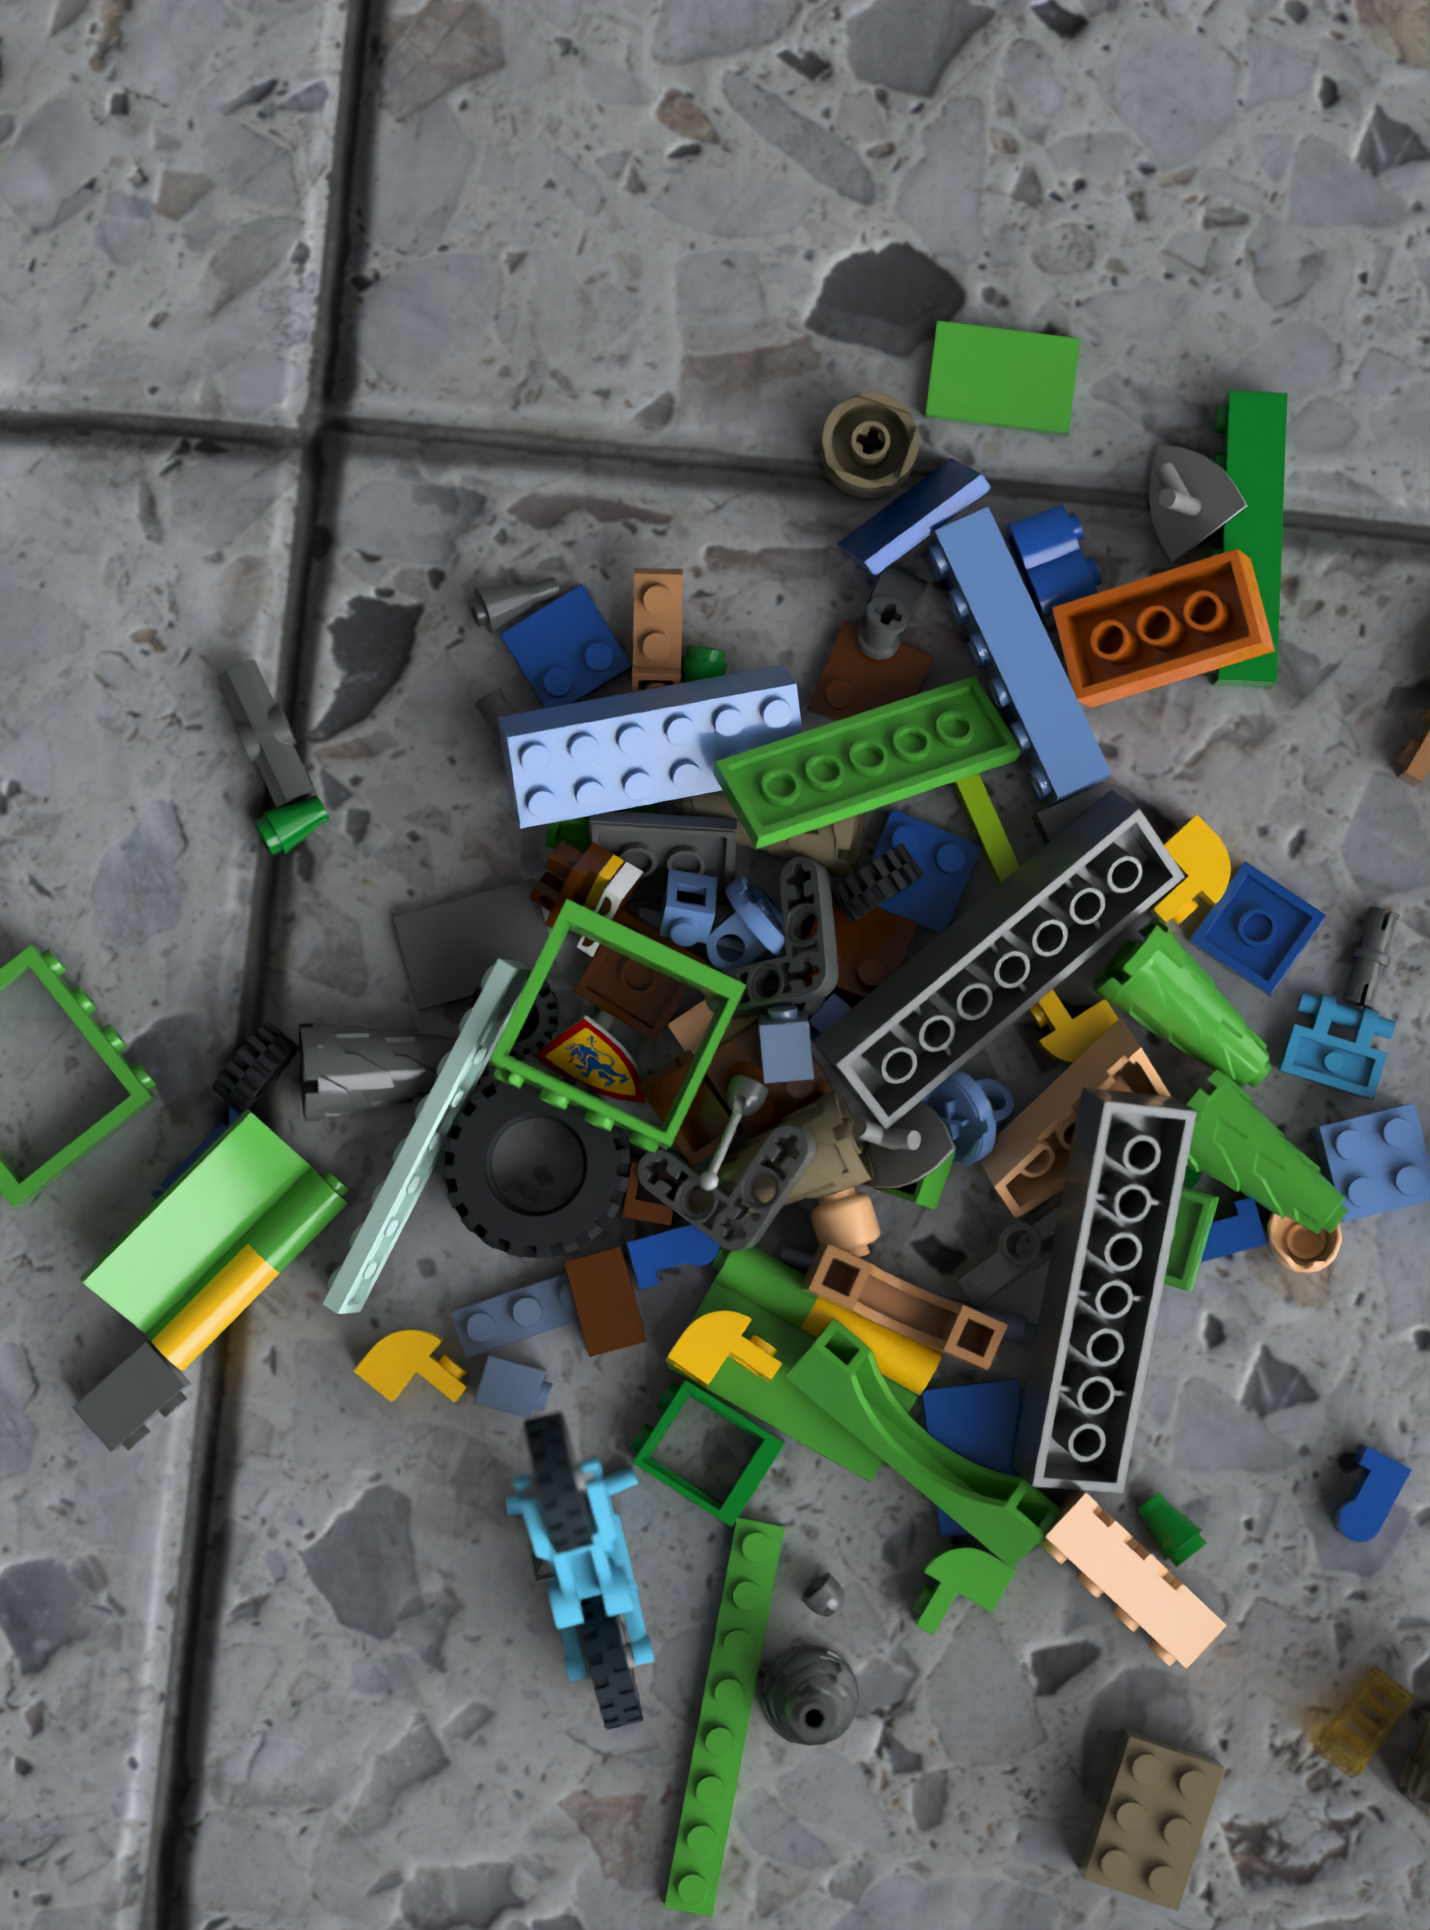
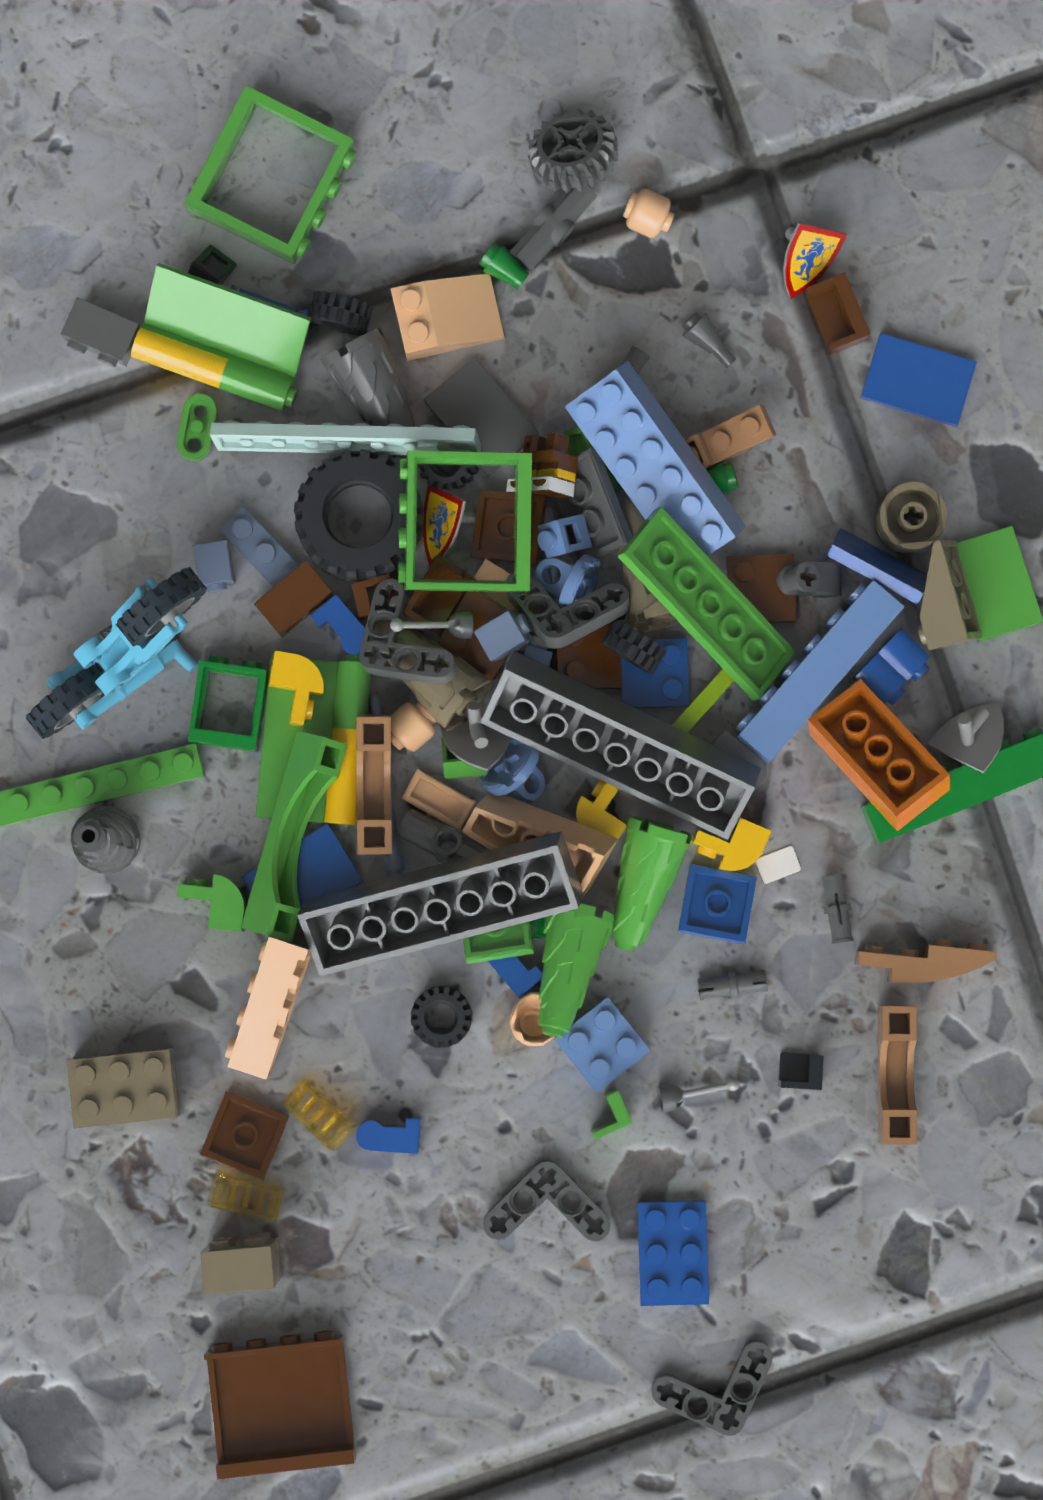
camera: 65 degrees right, 0 degrees up
(111, 1209) = (212, 266): none -> black slope
(196, 671) = (573, 150): none -> dark grey gear
(309, 602) = (648, 213): none -> light nougat head
(317, 1327) = (196, 428): none -> bright green plate
(320, 928) = (446, 315): none -> light nougat slope
(403, 1355) = (200, 487): yellow brick -> none
(462, 419) = (809, 255): none -> shield
(556, 418) = (837, 313): none -> reddish brown panel
(566, 650) = (693, 388): blue plate -> none
(690, 353) = (918, 380): none -> blue tile
(824, 1595) = (171, 820): dark grey hinge -> none
(956, 1230) = (438, 800): none -> light nougat tile
(1012, 452) = (947, 606): none -> dark tan slope
(1171, 1530) = (311, 1020): green cone -> none
(1240, 825) = (778, 864): none -> white sticker
(1273, 1362) = (435, 1037): none -> black tyre
(1284, 1687) = (244, 1135): none -> reddish brown plate
(1325, 1584) = (339, 1135): none -> clear yellow slope
(1333, 1060) = (655, 989): dark azure plate -> none
(1365, 783) = (834, 885): none -> dark grey pin

